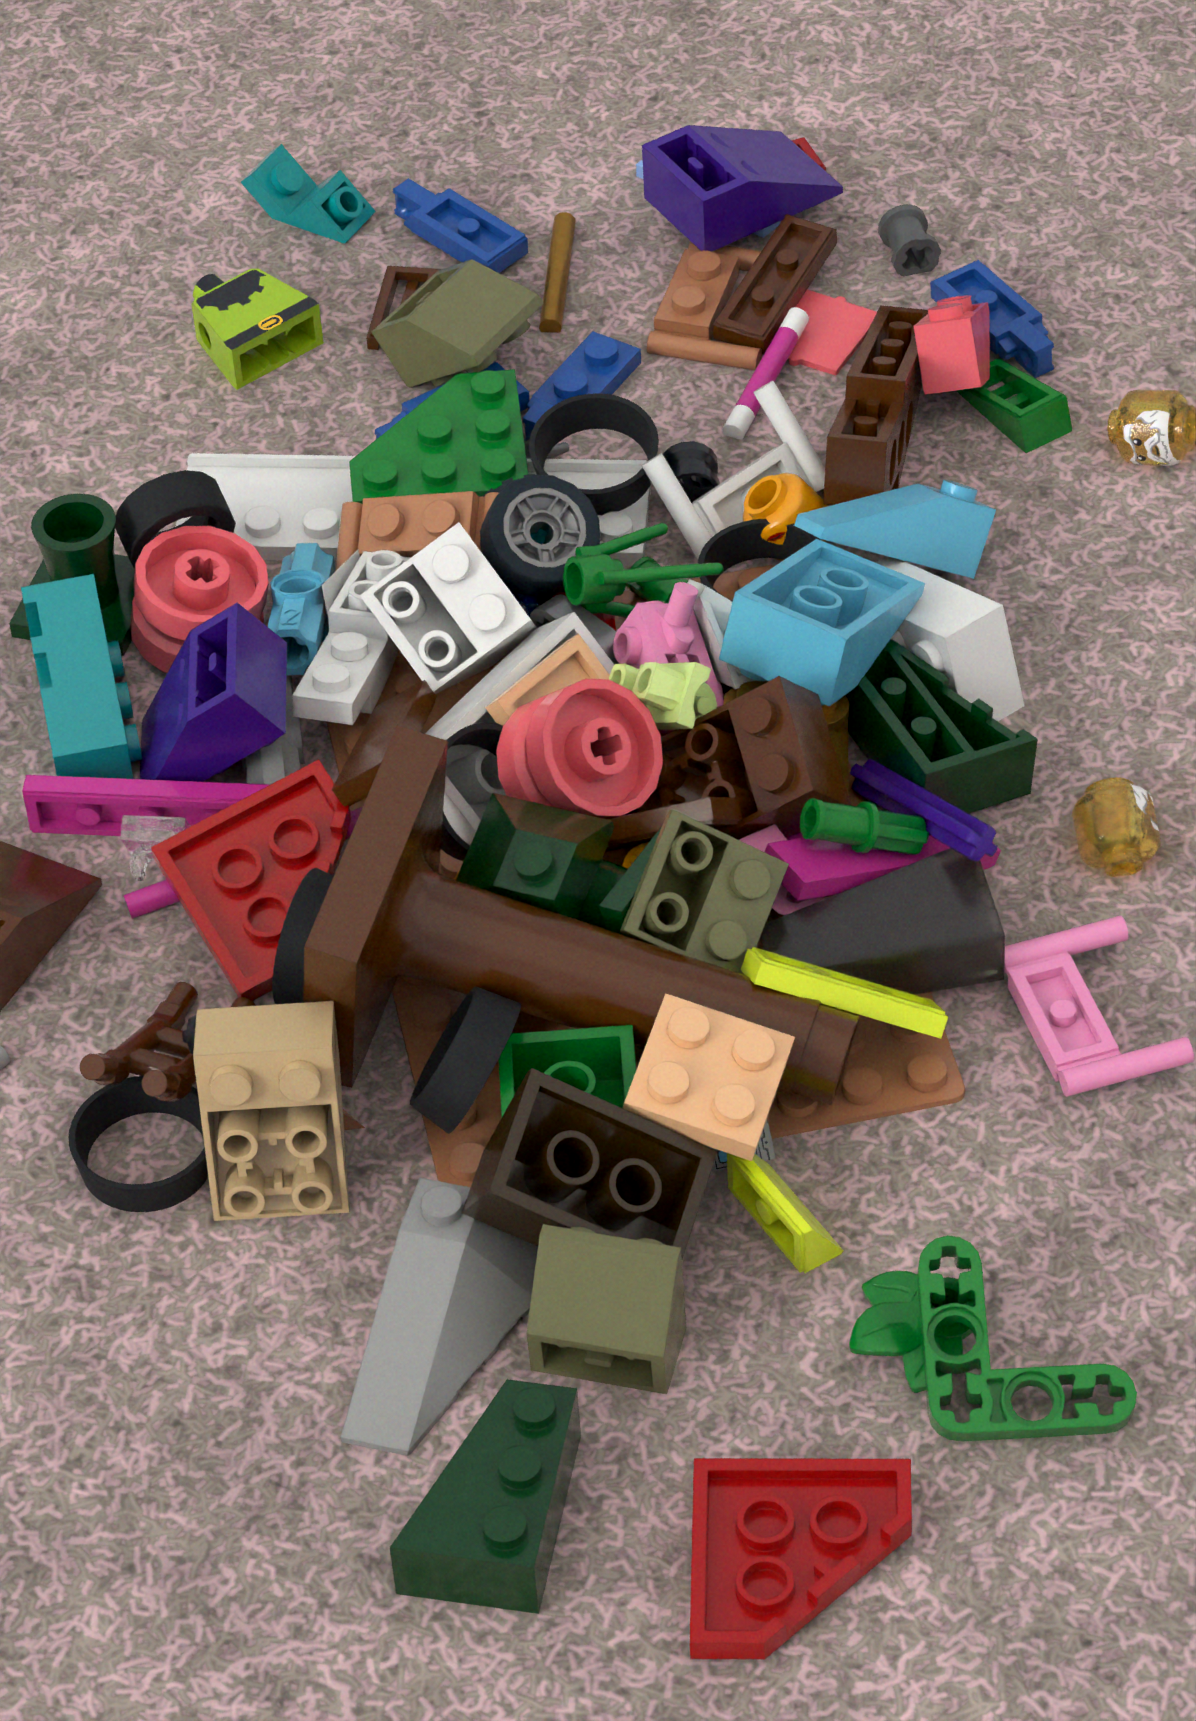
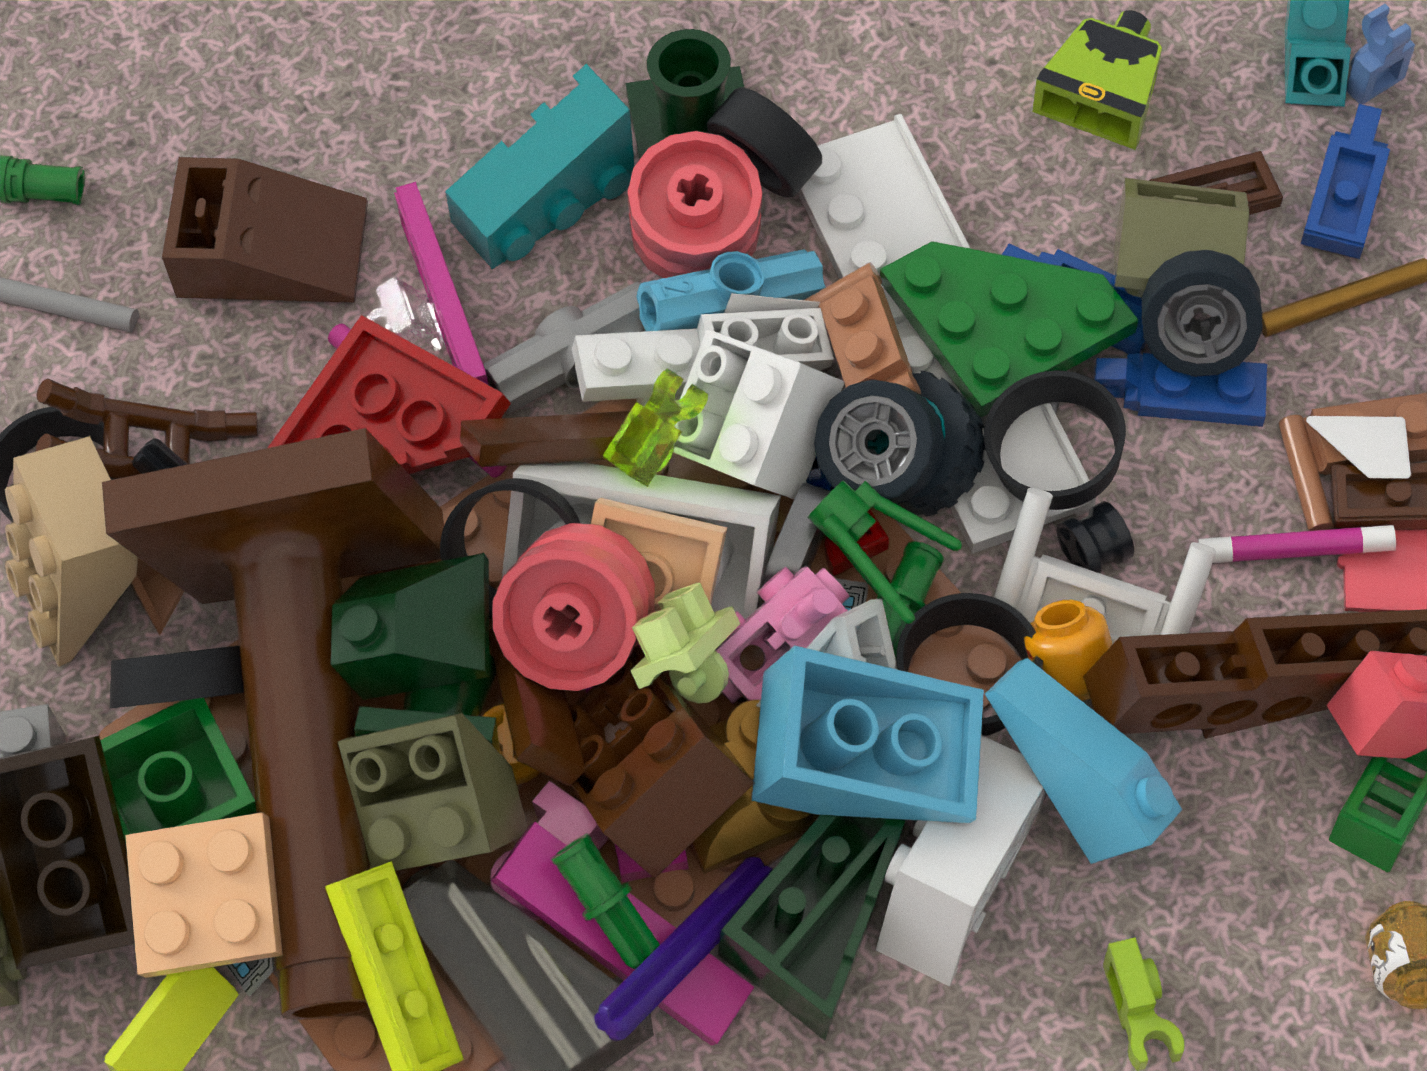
camera: 65 degrees right, 15 degrees up
(216, 700) = (543, 285): dark purple slope -> none
(361, 164) = (1382, 59): none -> medium blue plate
(438, 668) = (649, 431): none -> clear neon green plate
(542, 322) = (1223, 291): none -> wheel
(710, 291) = (1370, 443): none -> white sticker
(1100, 590) = (1135, 989): none -> lime plate

